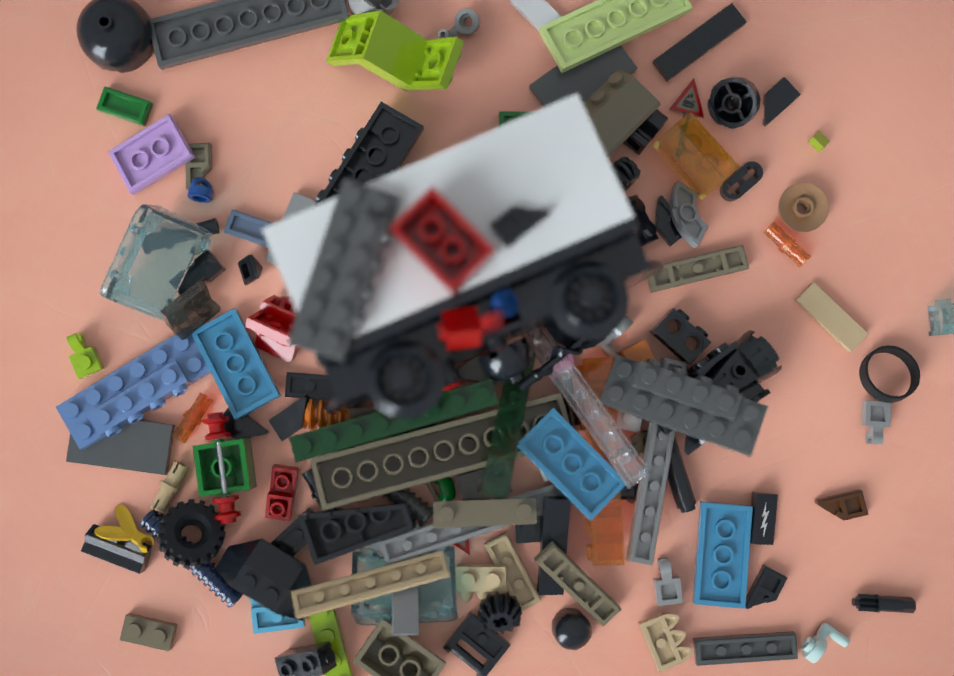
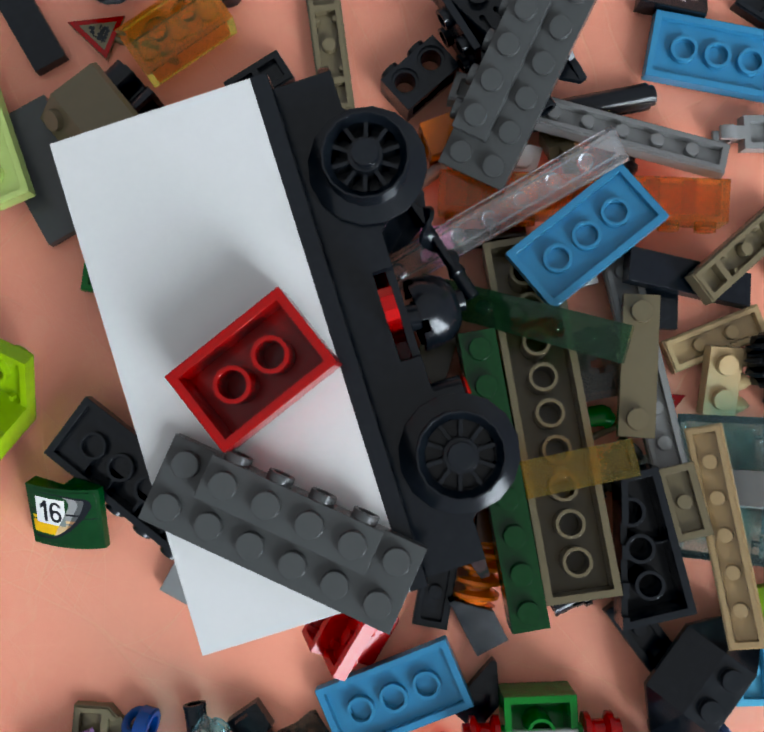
camera: 90 degrees left, 0 degrees up
(247, 227) = (198, 670): sand blue tile -> none
(249, 269) = (262, 662): black slope -> none
(282, 492) = (579, 646): red slope -> none
(340, 123) = (68, 513): none -> dark green slope
(391, 551) = (686, 501): none -> dark tan plate
(406, 472) = (580, 468): none -> clear yellow tile
(460, 328) = (392, 359): red brick -> none
(504, 302) = (359, 293): blue tile -> none
(517, 223) = (240, 255): black tile -> none
(685, 214) = (253, 52): light grey tile -> none

